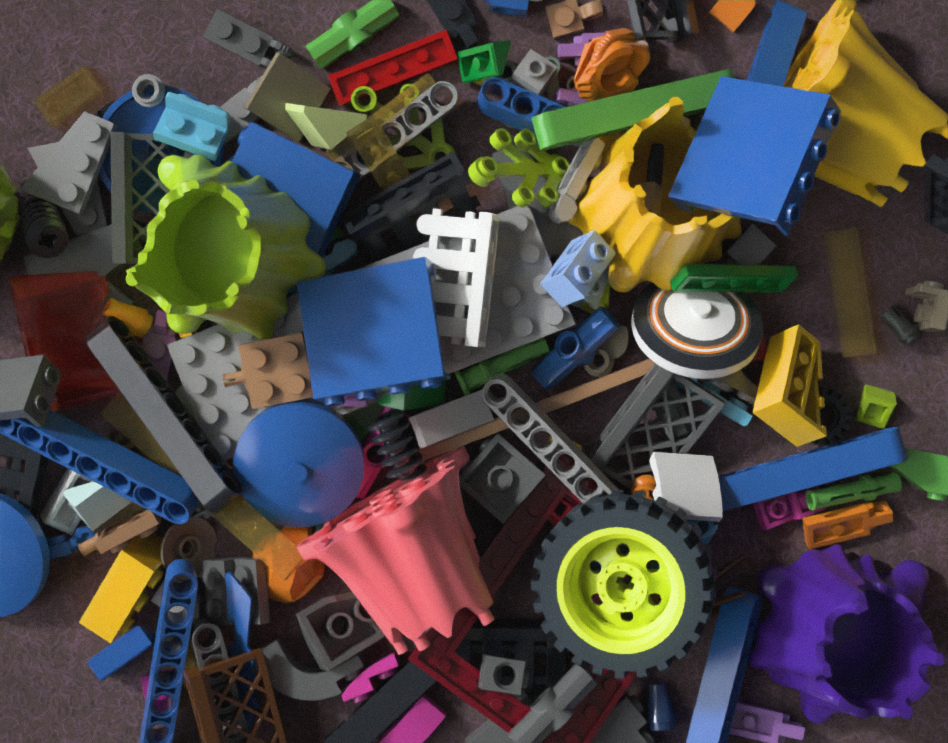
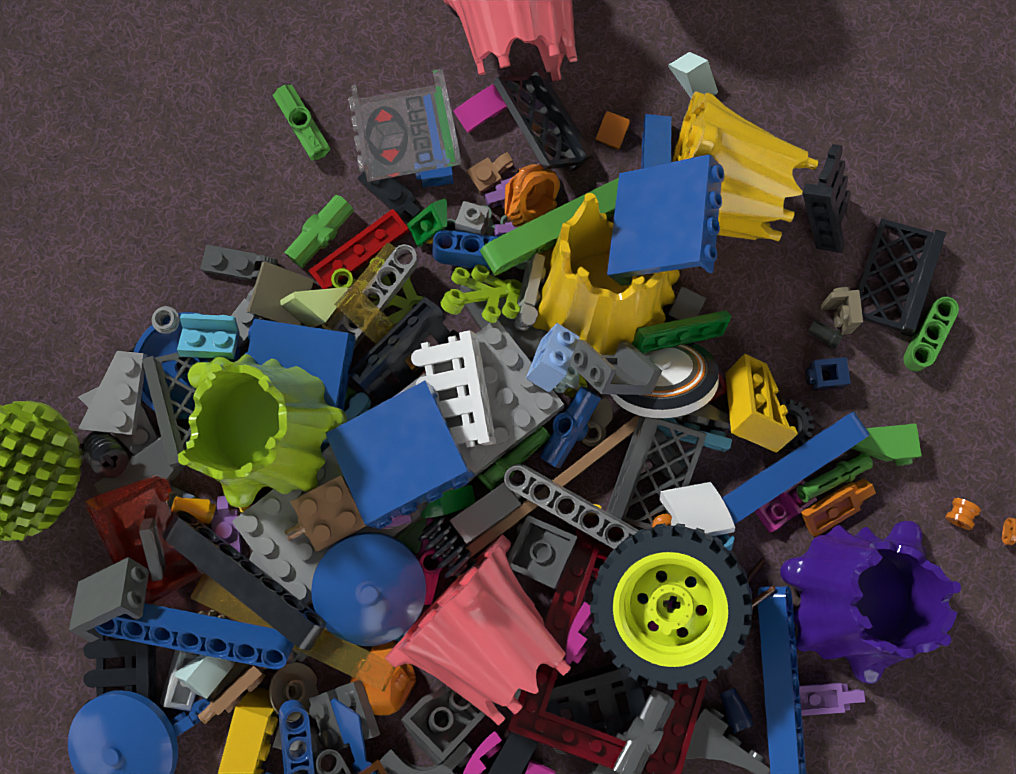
camera: 15 degrees left, 10 degrees down
(69, 96) = (103, 346): clear yellow tile -> none
(72, 350) = (153, 549): none -> dark grey tile
(489, 669) = (581, 723): dark grey brick -> none
(507, 590) = (575, 641): none -> dark pink slope
(643, 310) = (620, 373): none -> dark grey panel
(654, 179) = (591, 265): piece -> none
(850, 292) = (777, 320): clear yellow tile -> none
(875, 406) = (828, 405): lime slope -> none
(897, 375) = (835, 368): none -> dark blue brick

